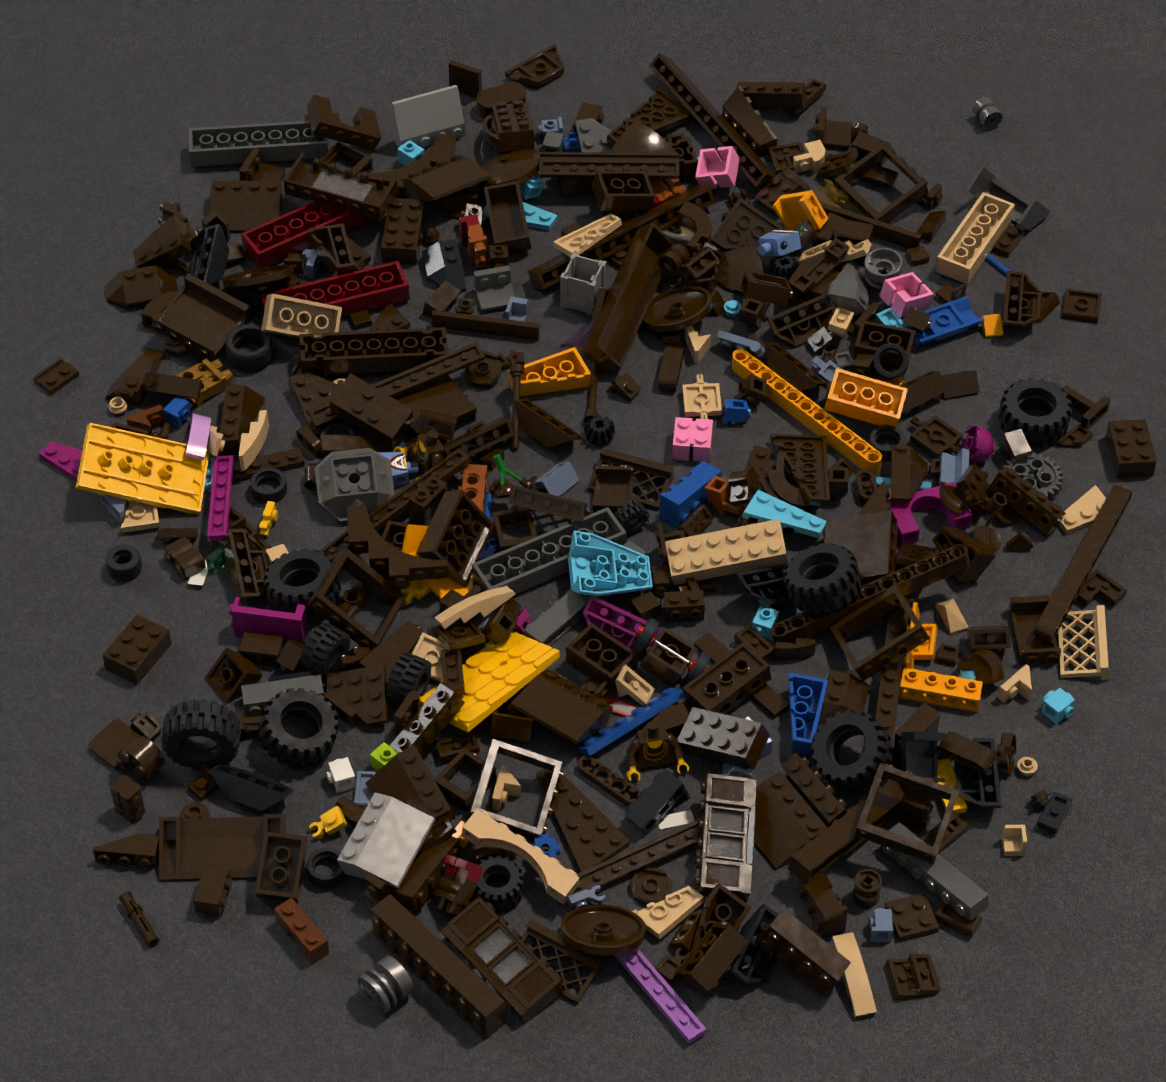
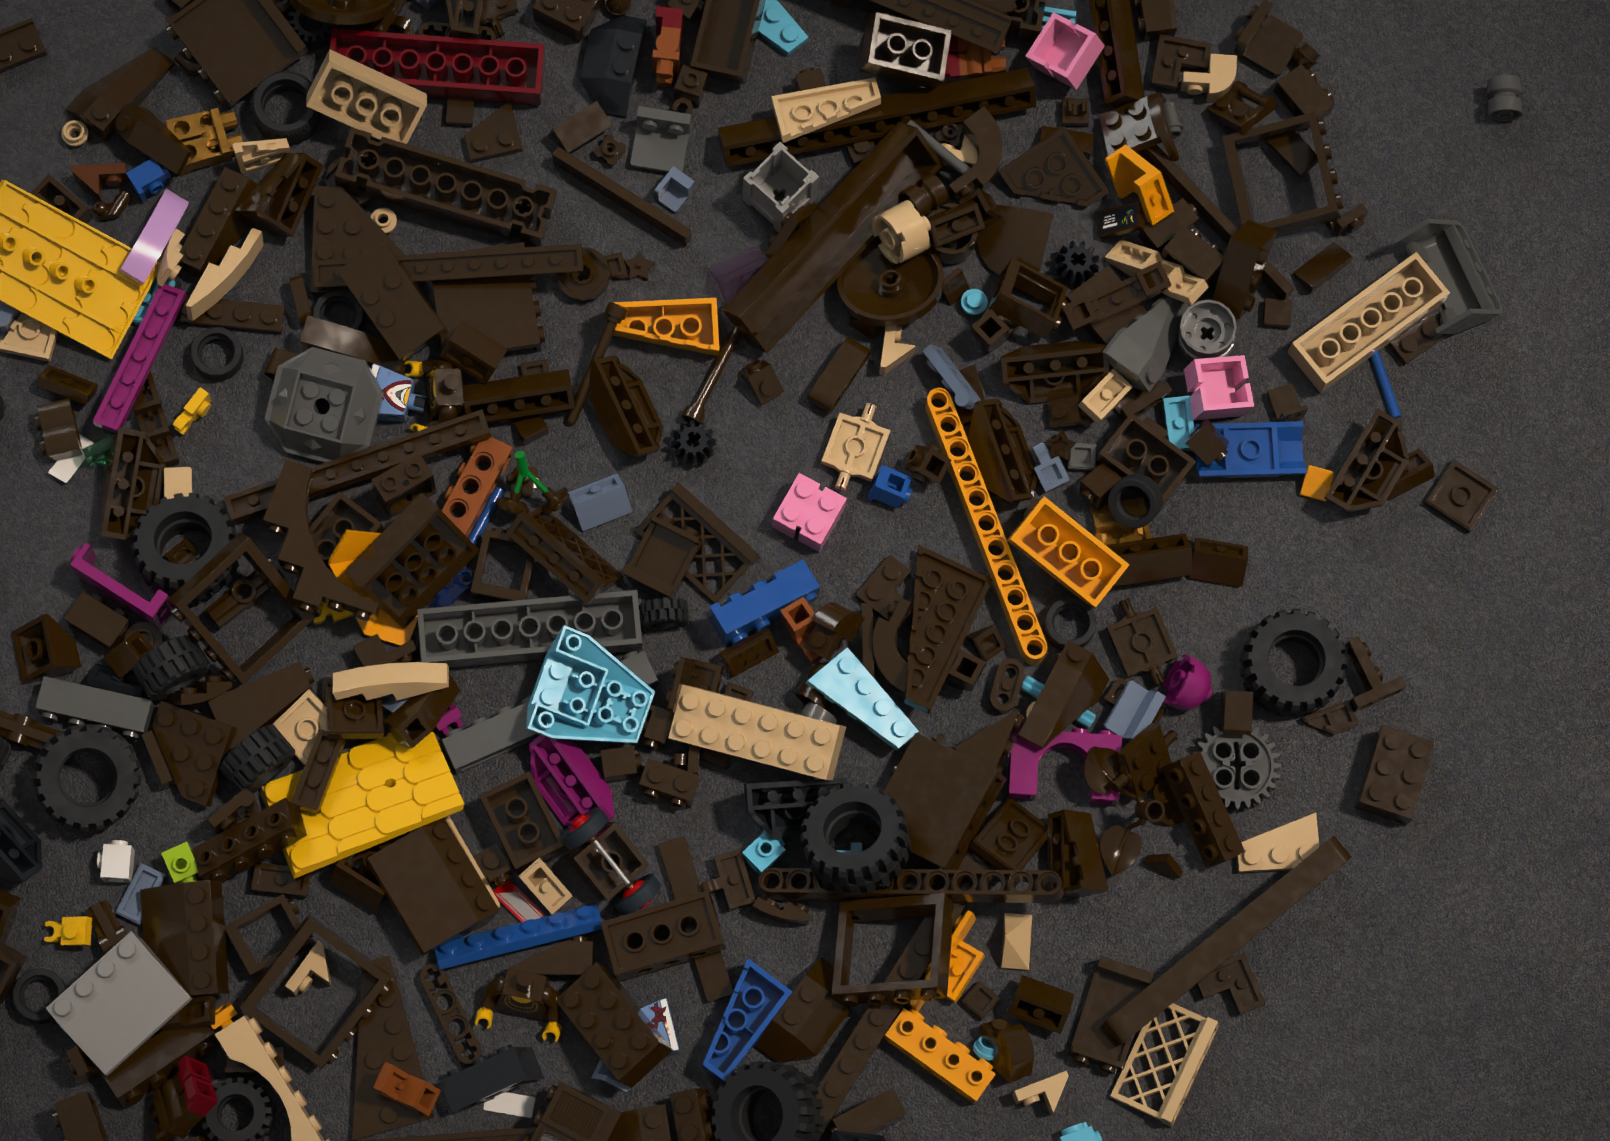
camera: 15 degrees right, 25 degrees up
(246, 372) = (259, 154): none -> tan wing
(271, 389) = (282, 194): none -> dark brown wedge
(546, 841) = (319, 1089): blue brick -> none
(605, 825) = (406, 1089): none -> dark orange brick
(671, 278) = (901, 232): none -> tan brick
(771, 242) = (1084, 223): medium blue torso -> none
(835, 193) = (1214, 154): clear yellow plate -> none
(886, 228) = (1243, 267): none -> dark brown wedge

